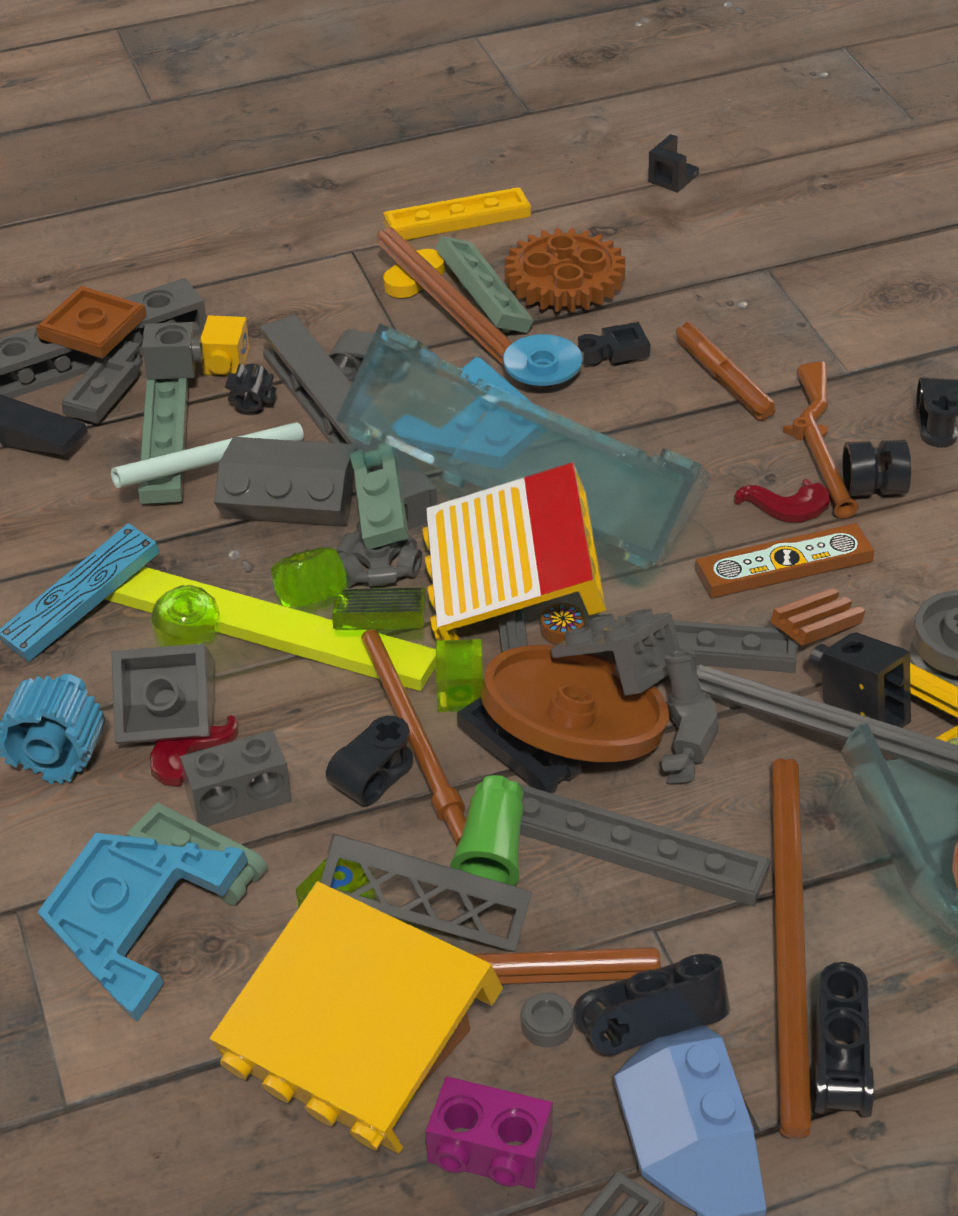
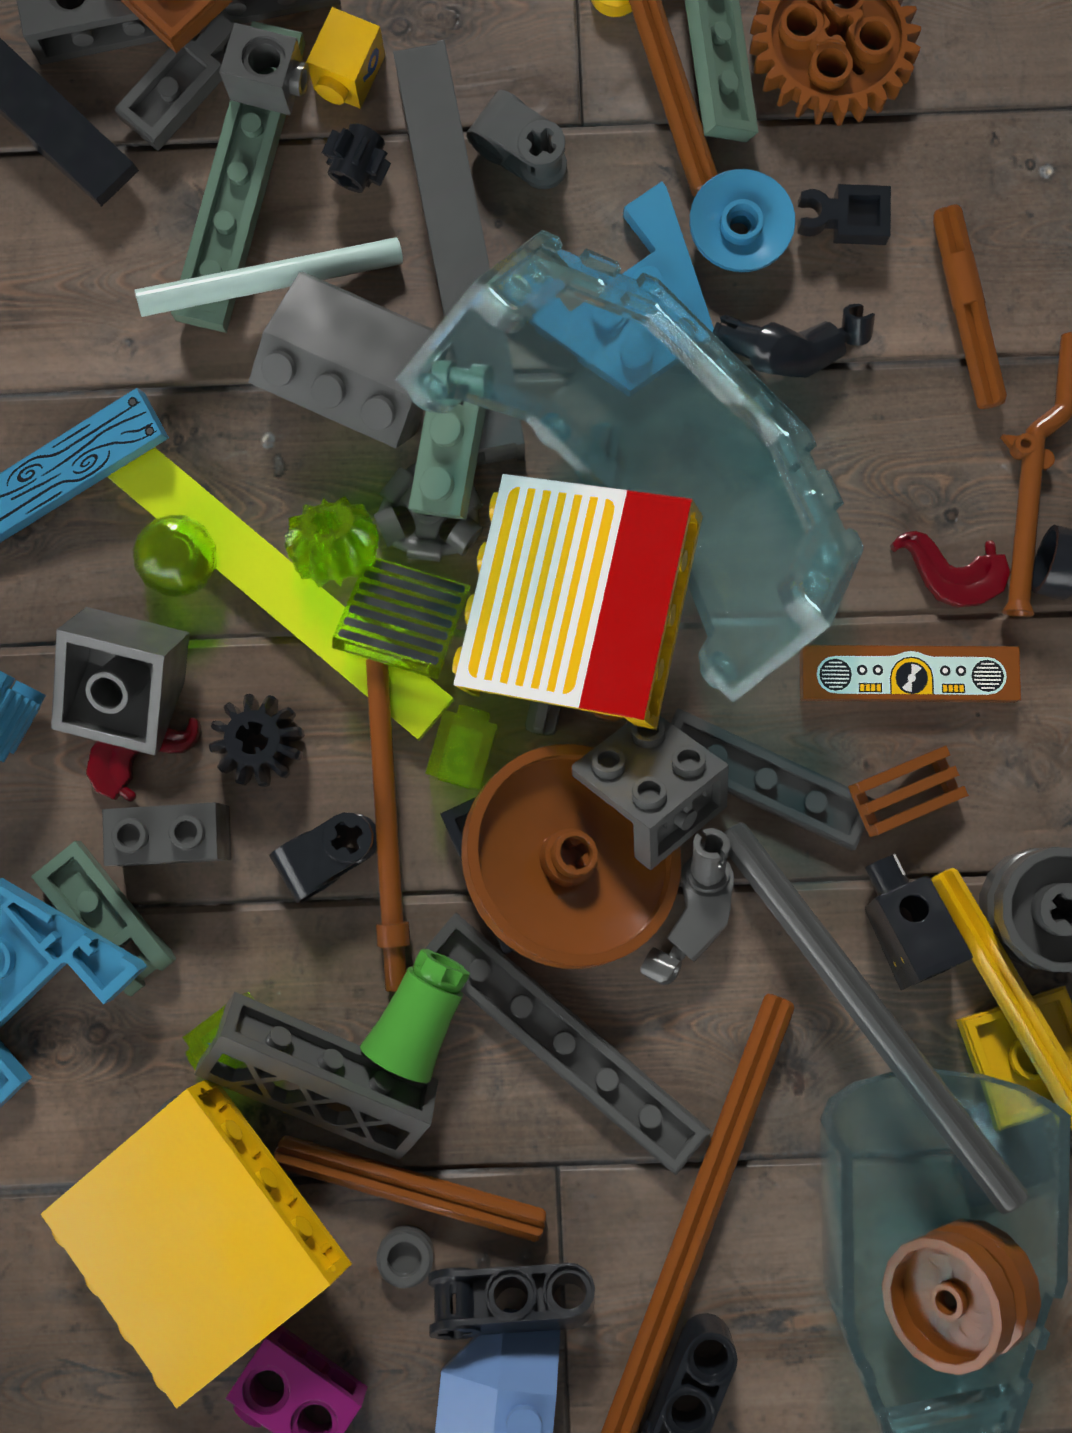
camera: 15 degrees right, 40 degrees up
(290, 707) = (239, 752): none -> black gear
(610, 412) = (792, 353): none -> black arm

